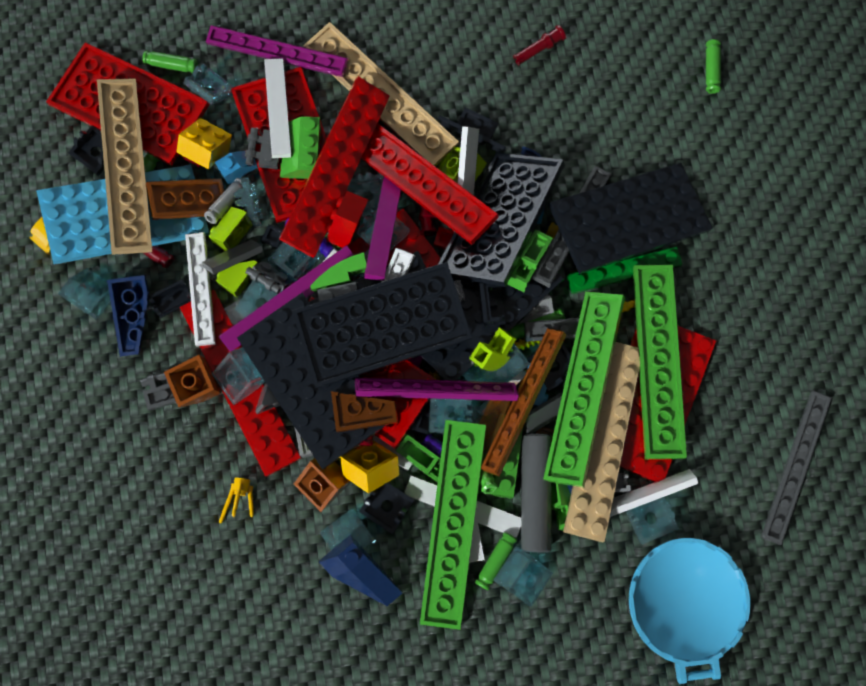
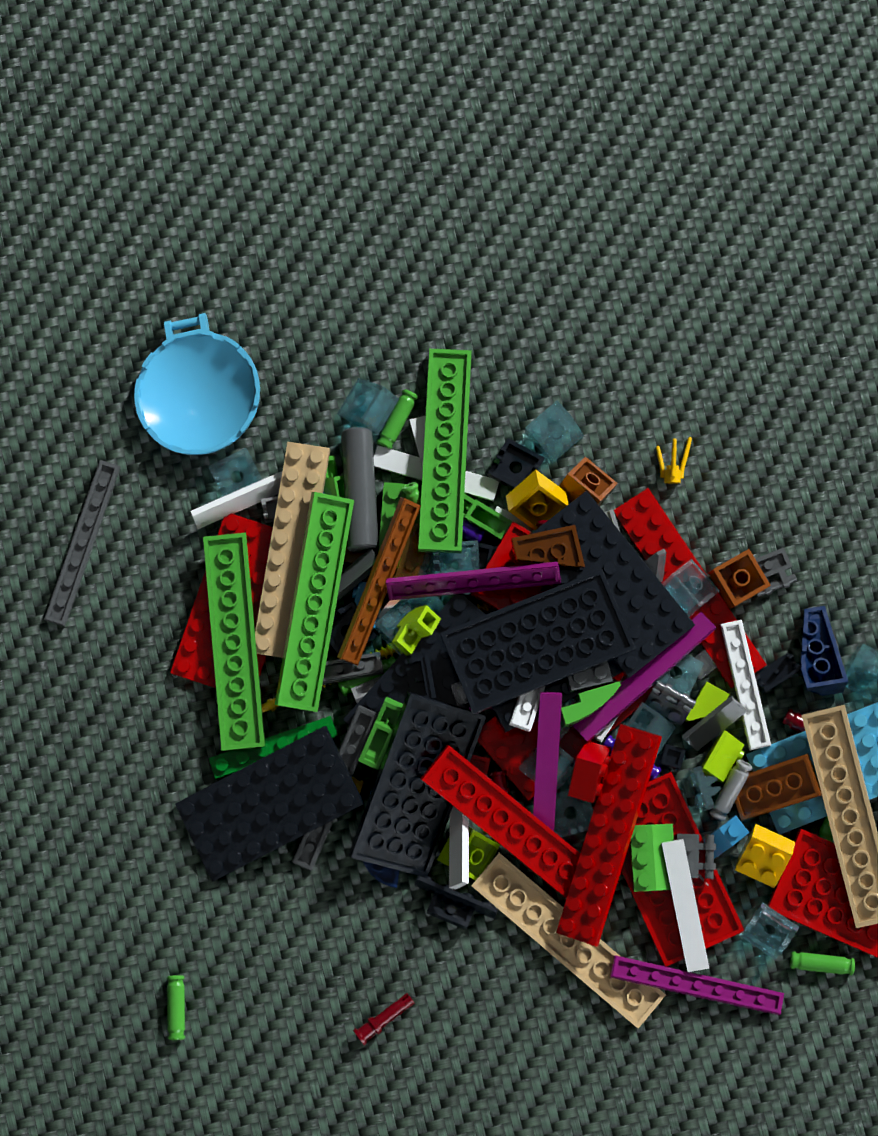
camera: 175 degrees right, 5 degrees up
(356, 568) = (538, 396): dark blue wedge -> none

